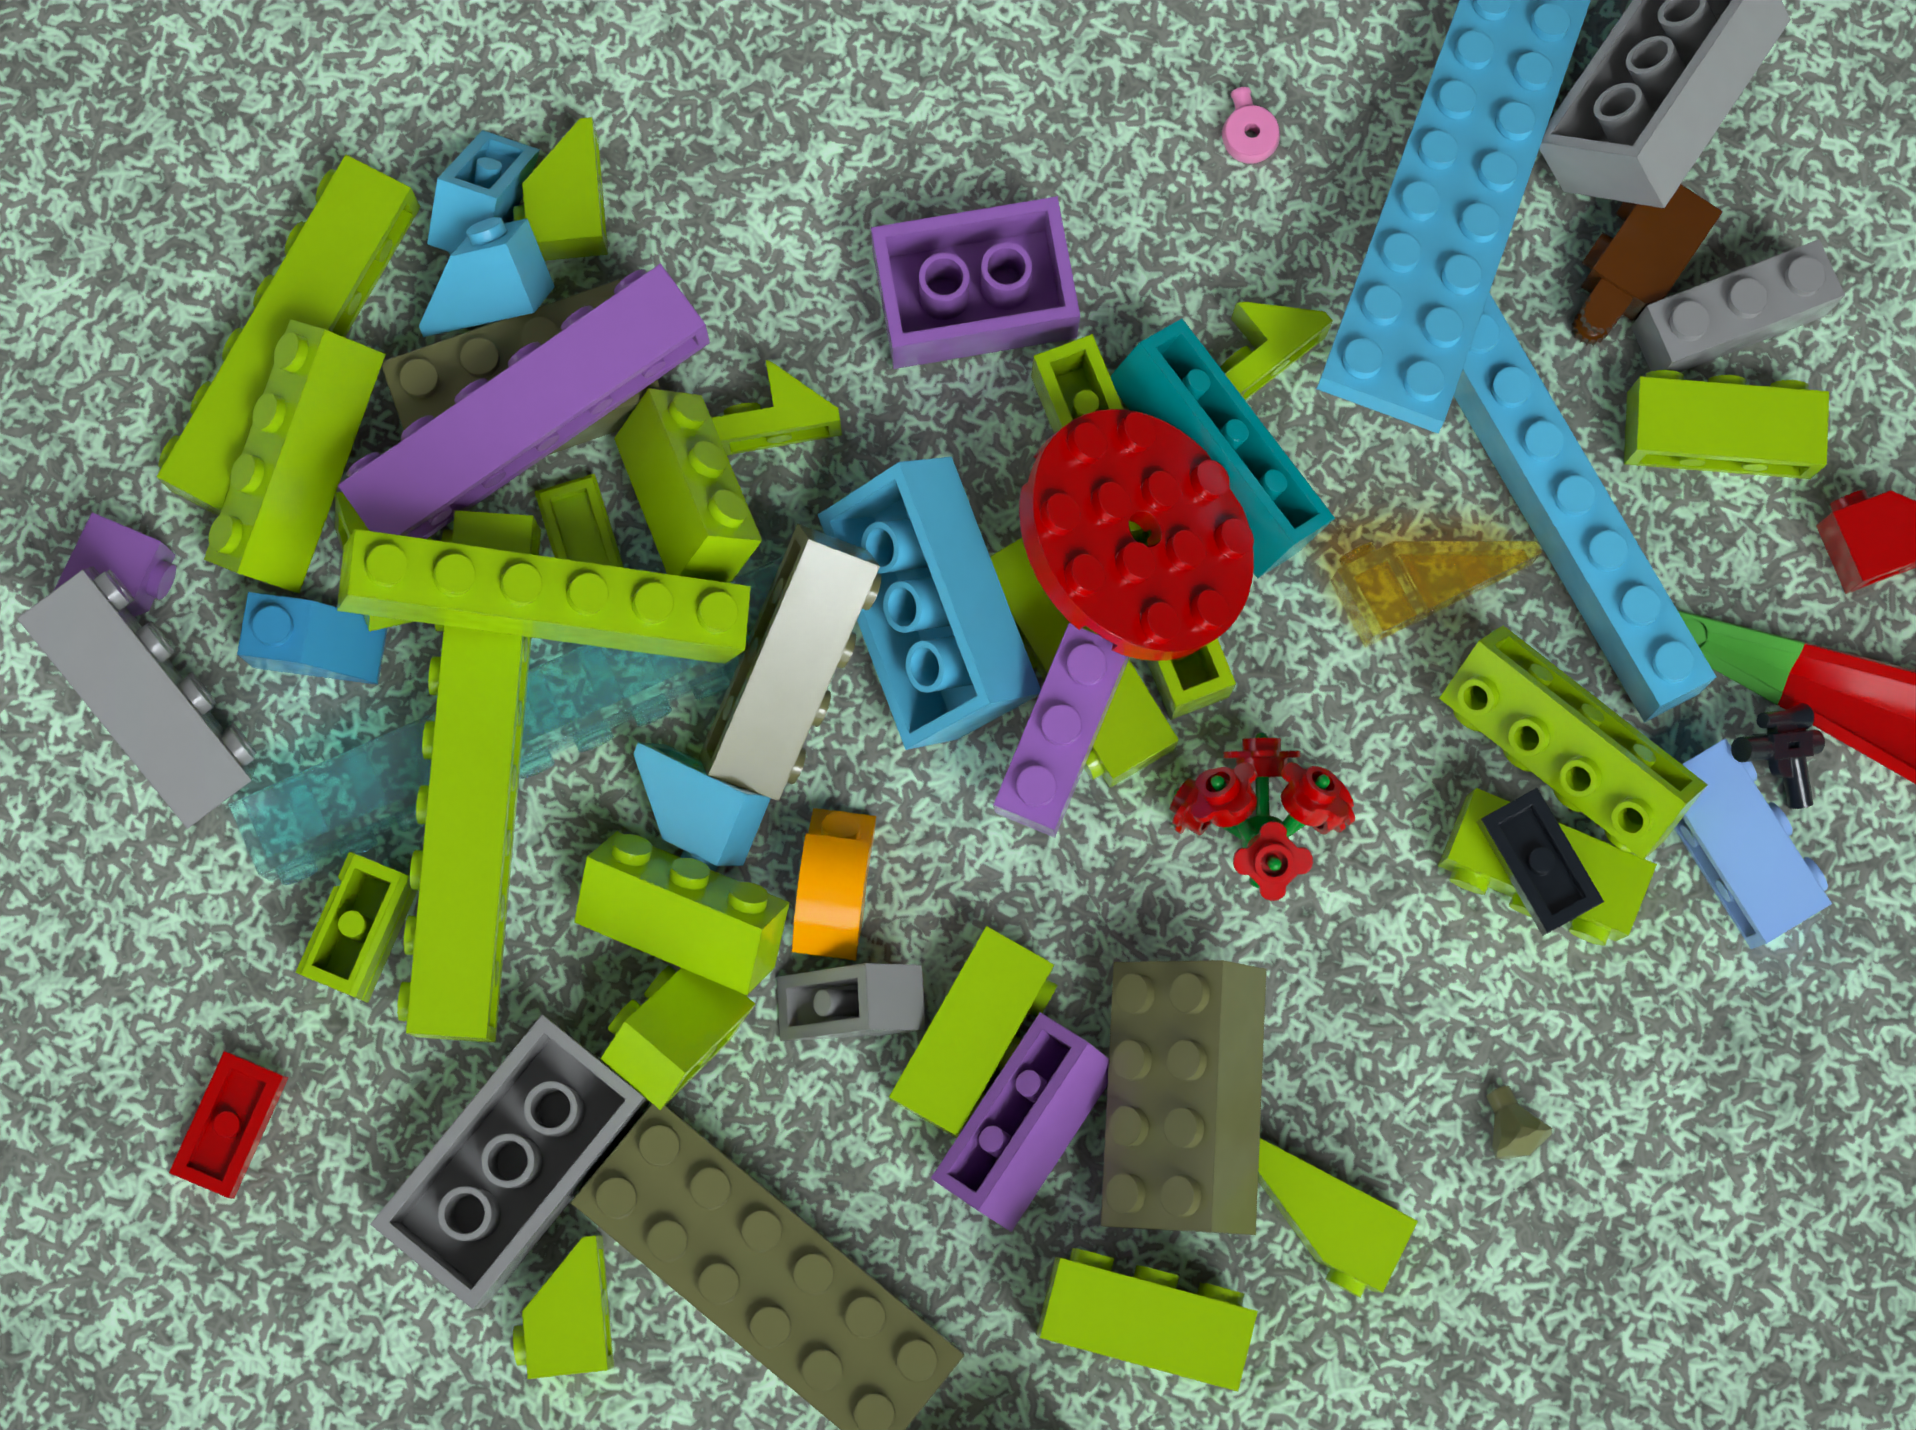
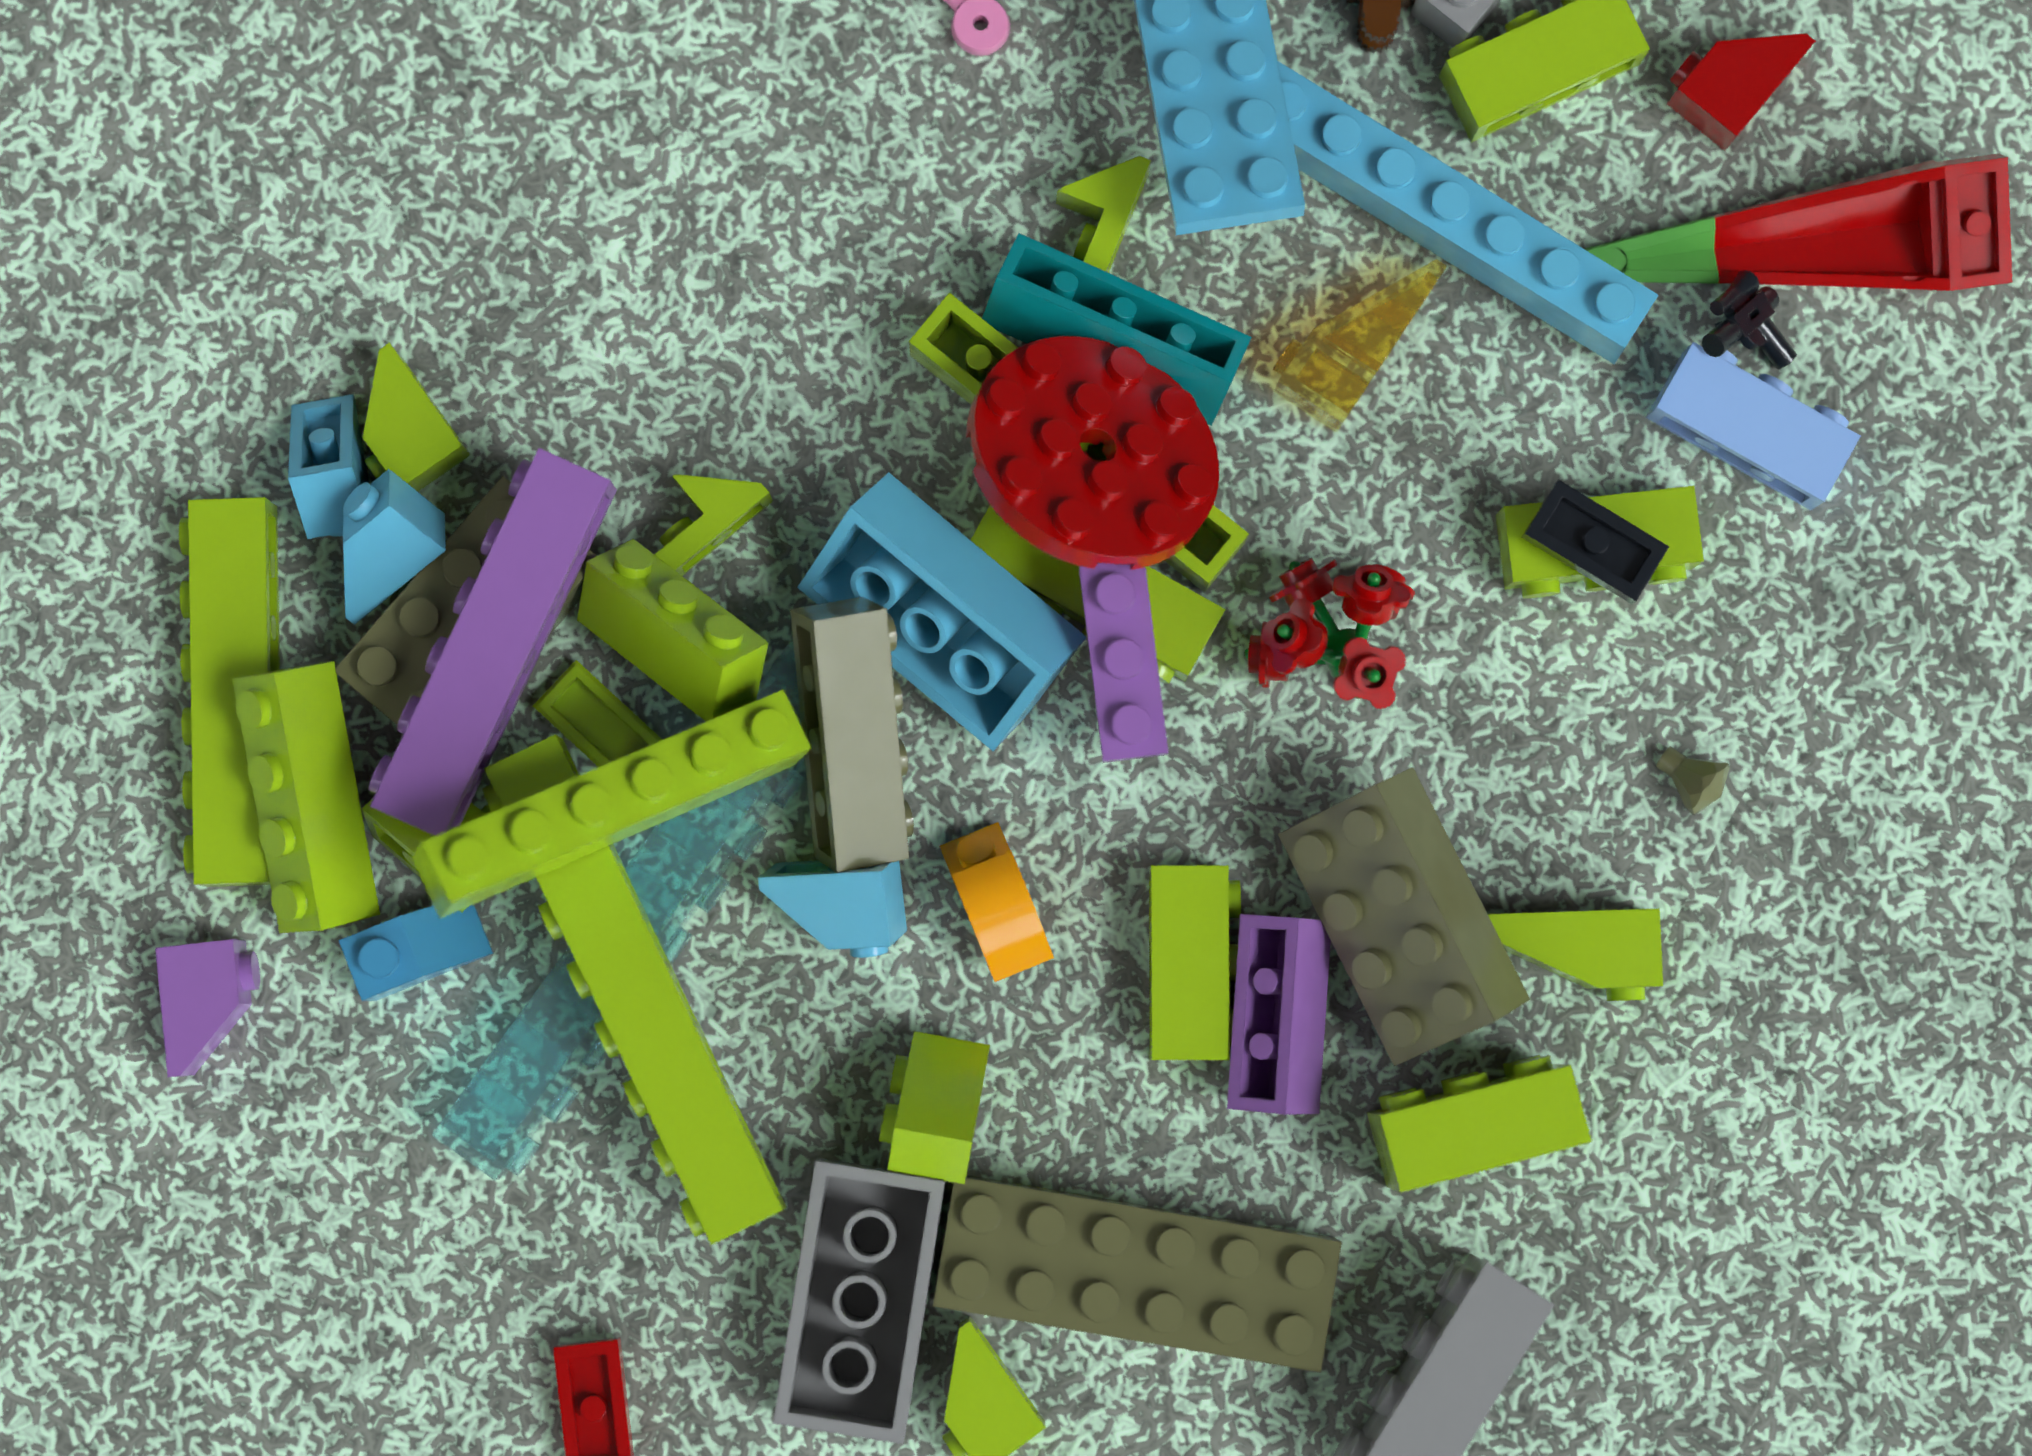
camera: 30 degrees left, 5 degrees up
(139, 693) = (301, 1086): light grey brick -> none
(358, 927) = (608, 1177): lime brick -> none
(681, 912) = (881, 1003): lime brick -> none
(851, 1002) = (1070, 996): light grey slope -> none
(975, 282) = (816, 300): medium lavender brick -> none
(1572, 742) = (1564, 420): lime brick -> none

